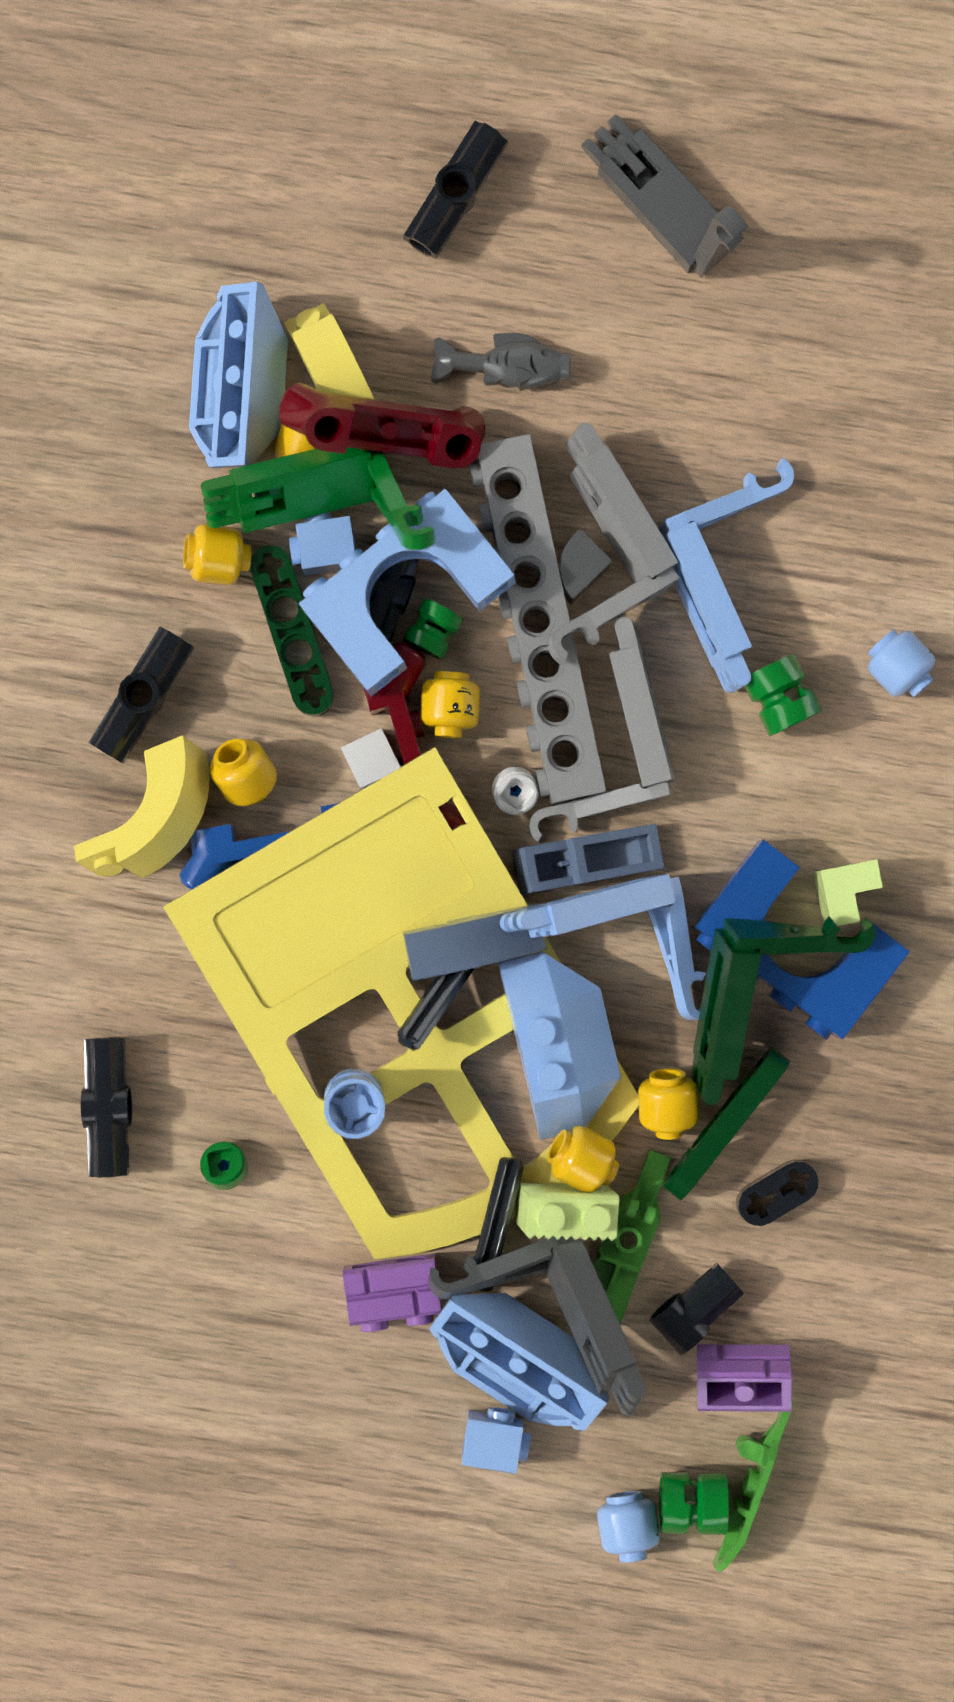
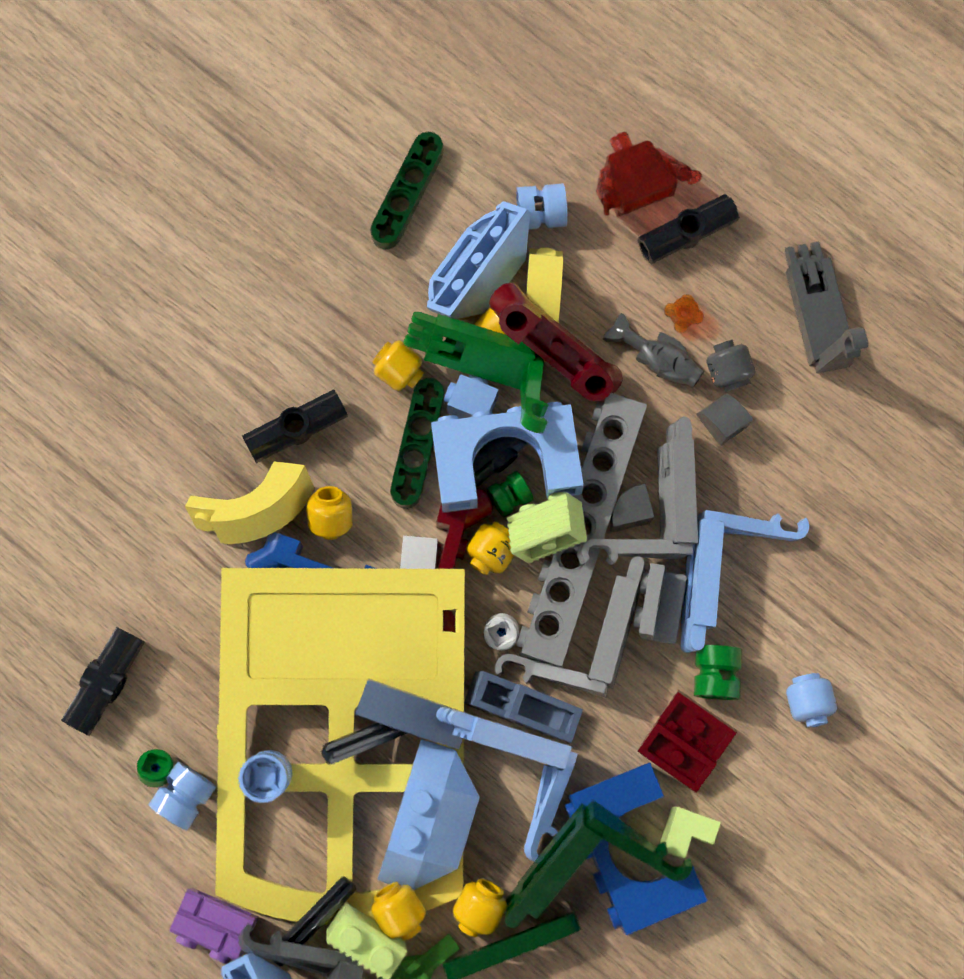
camera: 30 degrees right, 10 degrees down
(96, 335) = (407, 190): none -> dark green beam
(273, 1177) = (181, 797): none -> light blue wheel
(279, 251) = (553, 205): none -> light blue wheel
(361, 157) = (639, 176): none -> clear red torso
(499, 645) = (546, 527): none -> yellowish green brick
(507, 282) = (687, 304): none -> clear orange plate
(598, 329) = (730, 365): none -> dark grey head
(625, 395) = (725, 418): none -> dark grey brick
(678, 656) = (662, 605): none -> light grey bracket
(790, 789) = (687, 741): none -> dark red slope

